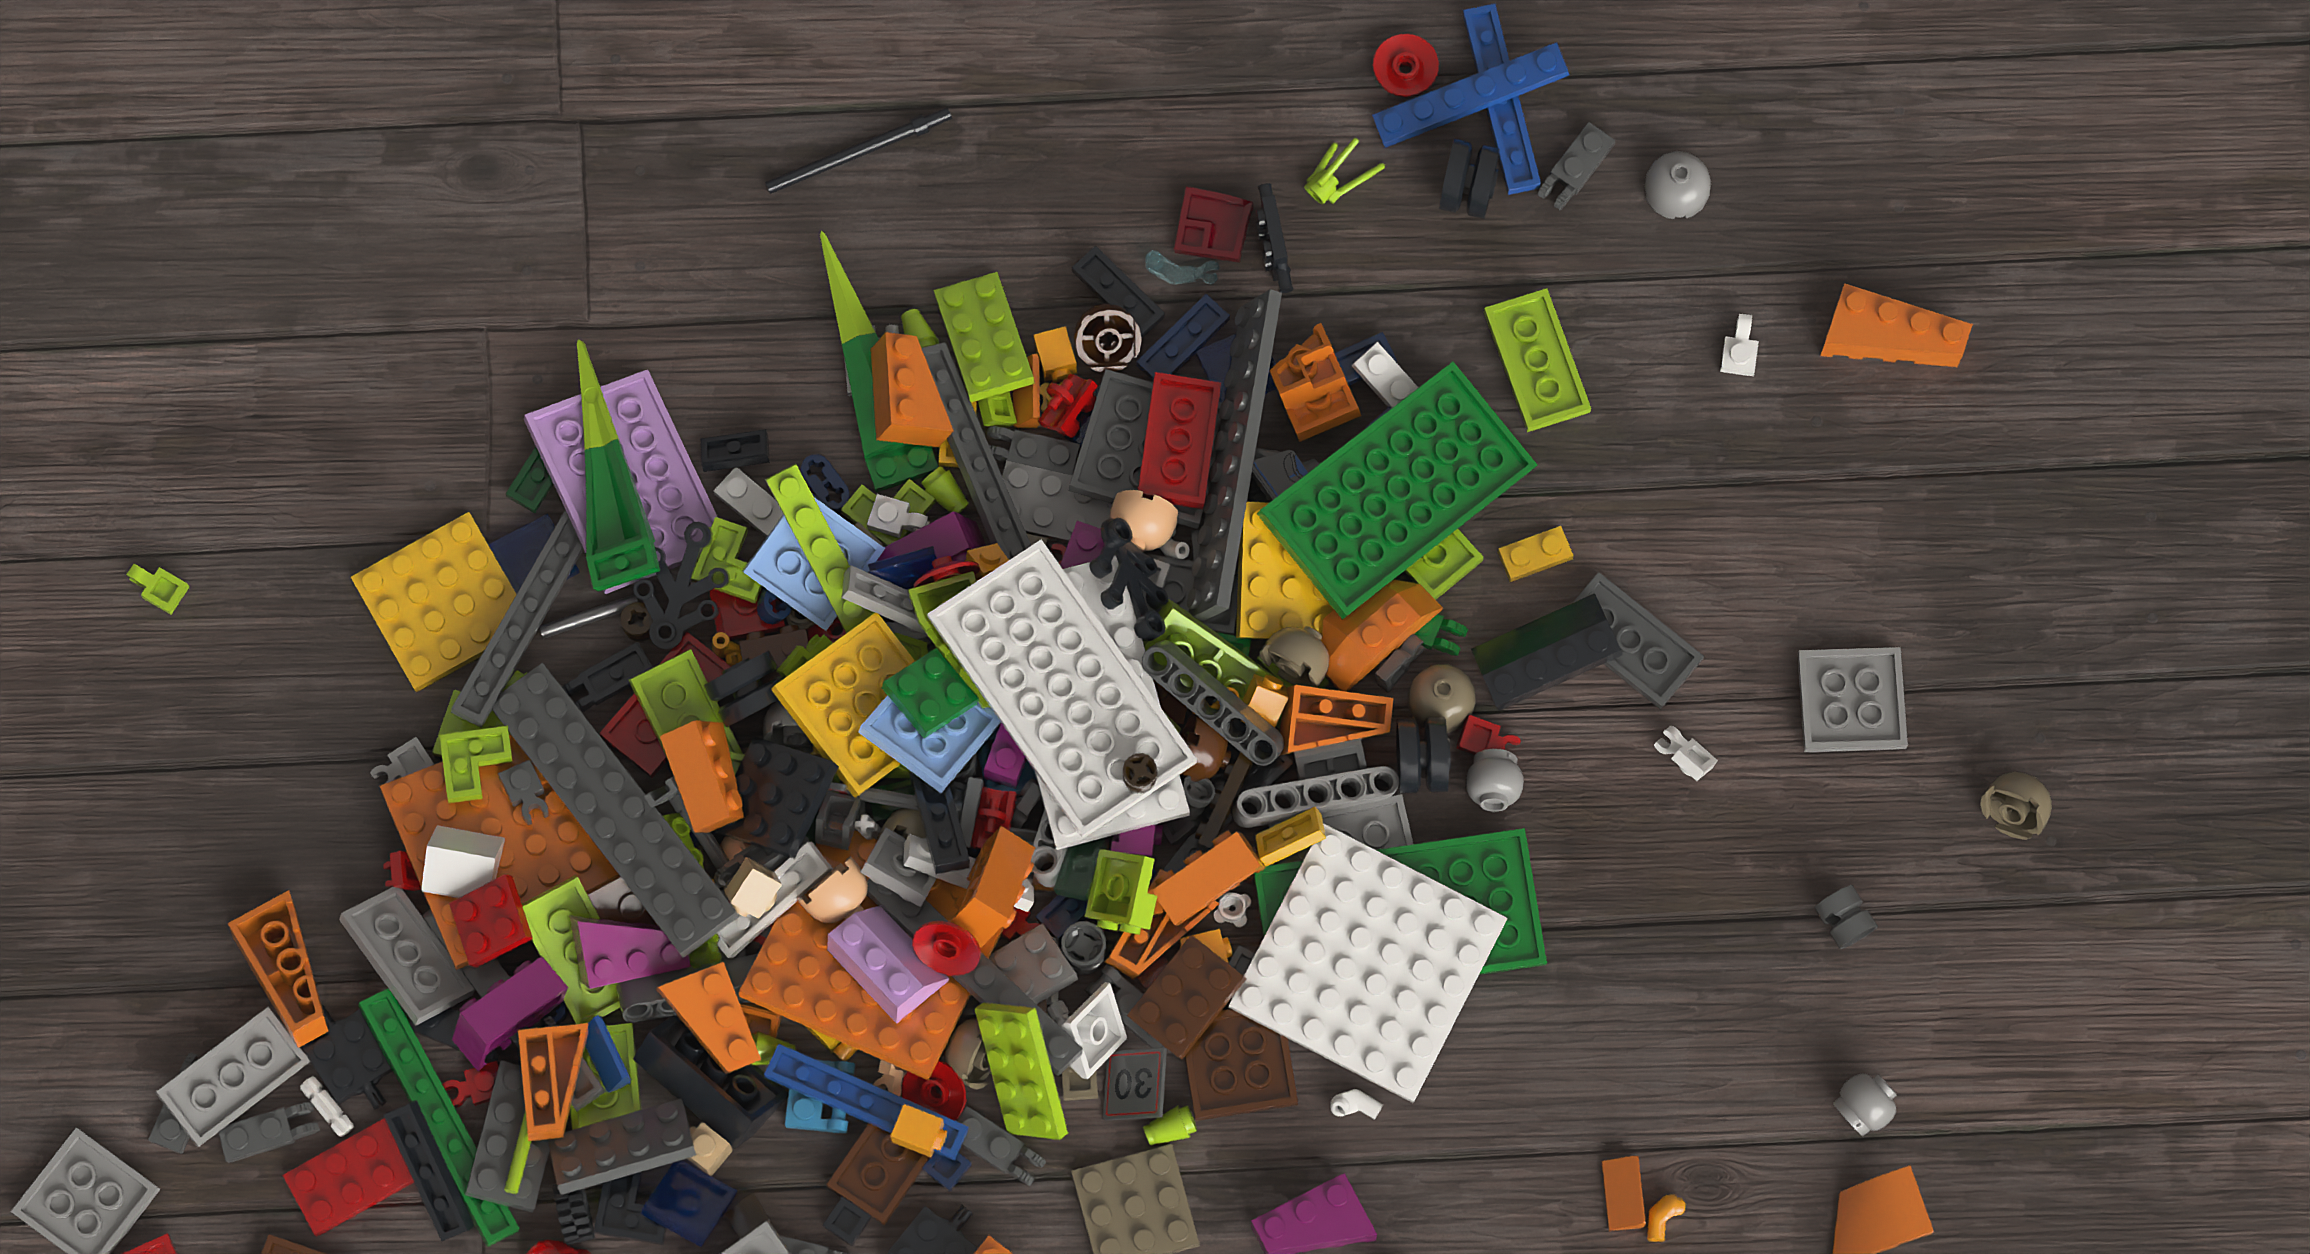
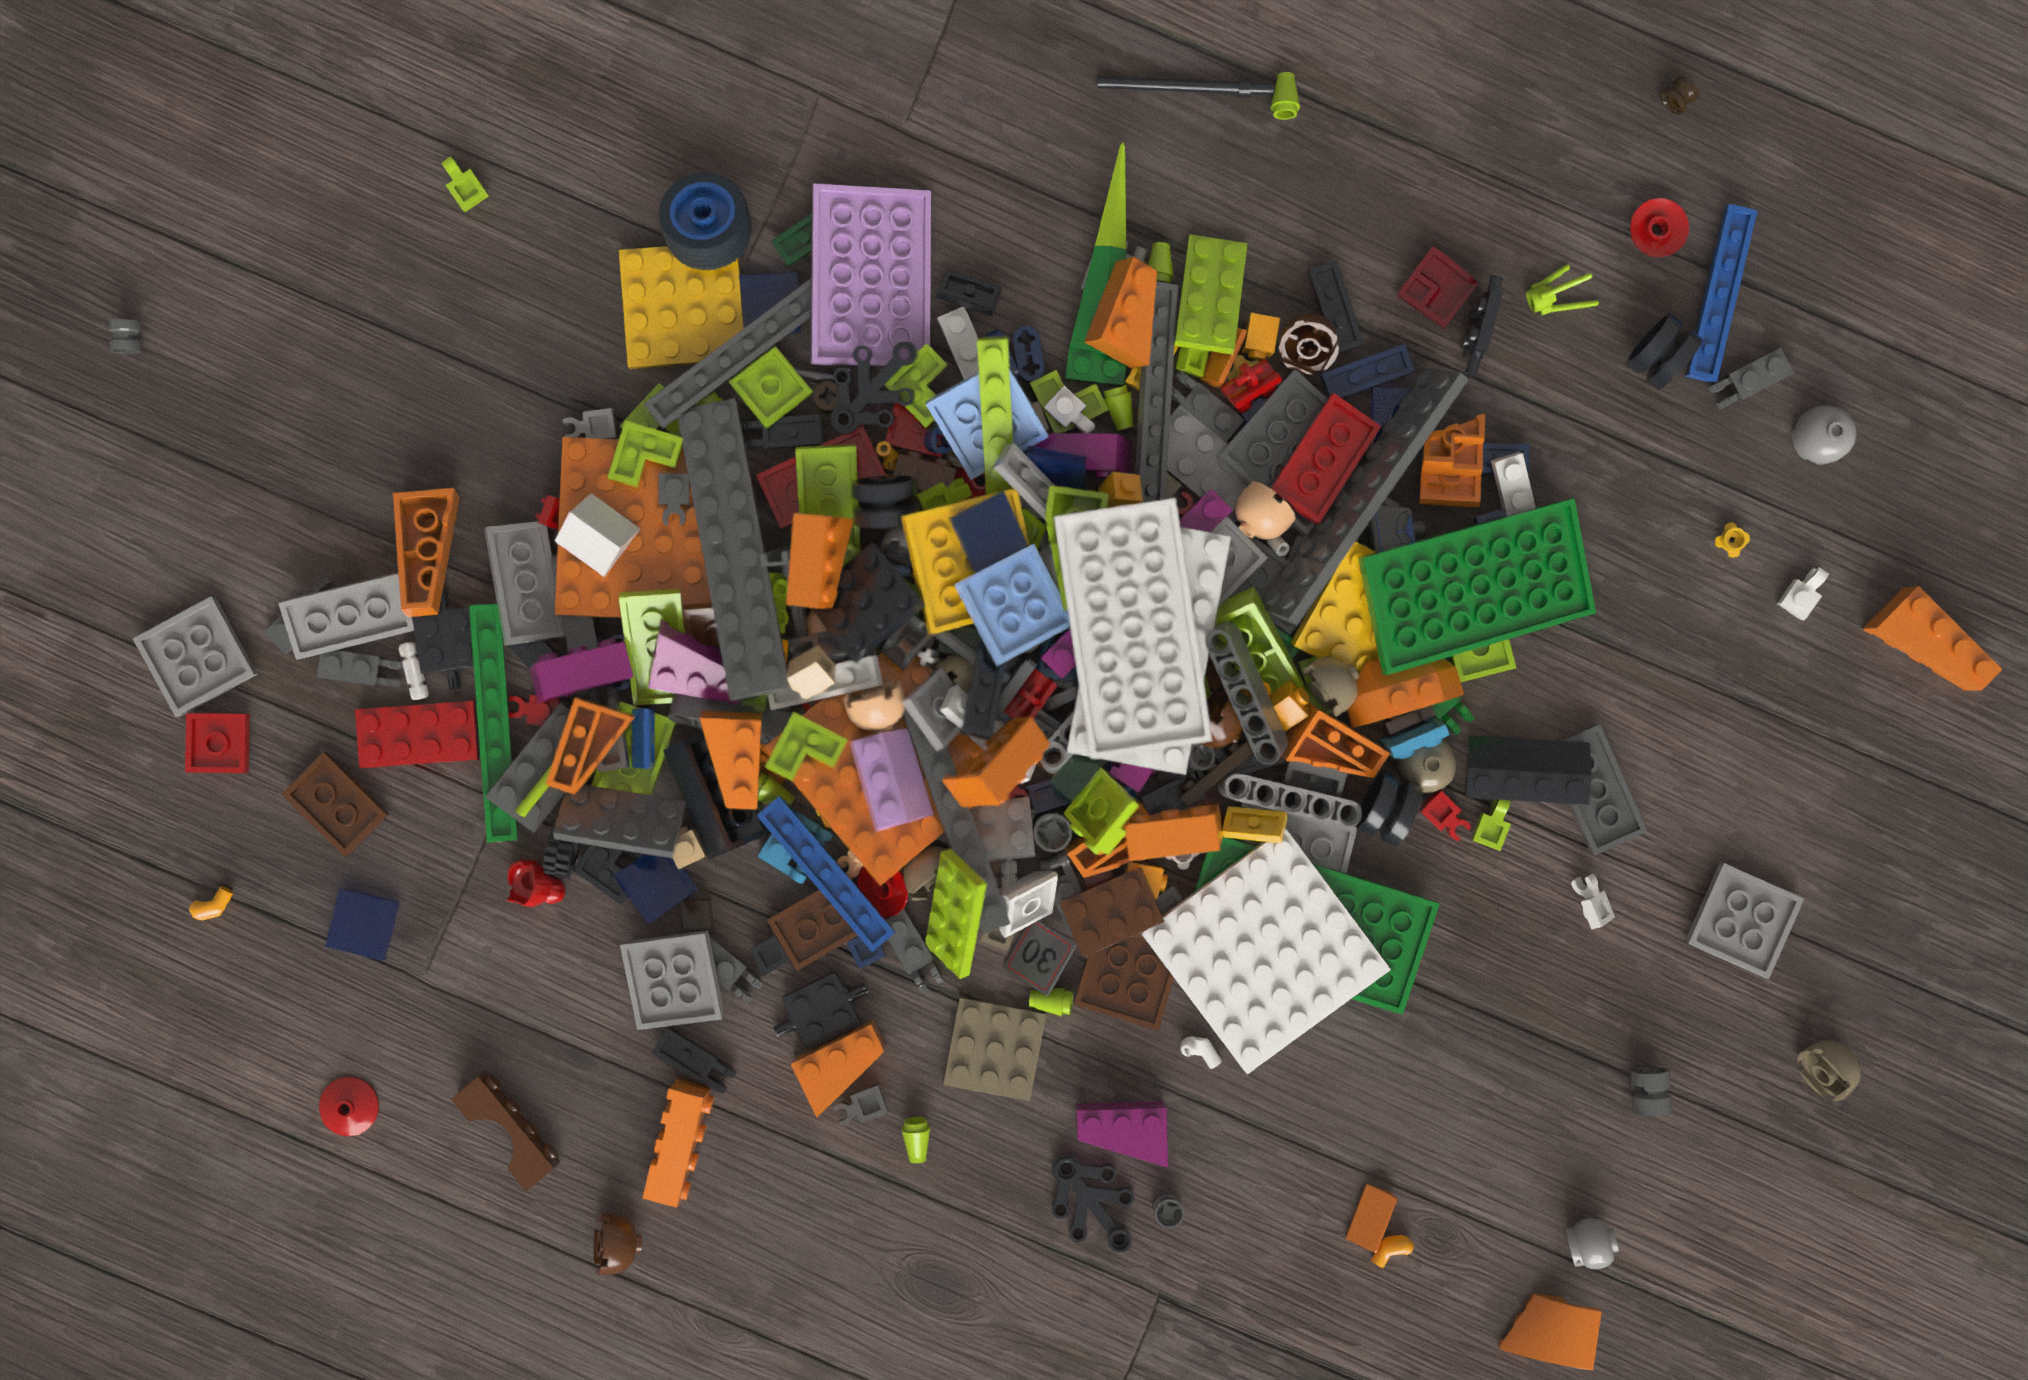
camera: 20 degrees right, 15 degrees up
(429, 1170) = (465, 764): black plate -> none
(430, 504) = (705, 221): none -> wheel
(491, 920) = (595, 595): red plate -> none
(573, 638) = (770, 387): none -> lime plate
(616, 524) = (844, 313): green plate -> none
(775, 960) = (804, 738): none -> lime plate
(865, 663) = (988, 532): none -> clear blue tile
(919, 1131) = (854, 922): light orange brick -> none
(930, 693) = (1026, 579): green plate -> none
(946, 568) = (1088, 482): red dish -> none
(946, 948) = (941, 797): red dish -> none
(965, 115) = (1285, 97): none -> lime cone
(1117, 541) = (1233, 558): black plant -> none
(1142, 766) = (1167, 733): dark brown wheel -> none
(1174, 274) = (1387, 314): clear light blue arm -> none
(1404, 685) = (1426, 734): none -> dark azure plate
(1471, 95) = (1700, 279): blue plate -> none
(1494, 779) = (1435, 853): light grey piece -> none
(1535, 553) = (1557, 682): yellow plate -> none
(1537, 360) = (1639, 525): lime plate -> none
(1542, 730) = (1491, 828): none -> lime plate
(1635, 321) = (1740, 537): none -> yellow plate

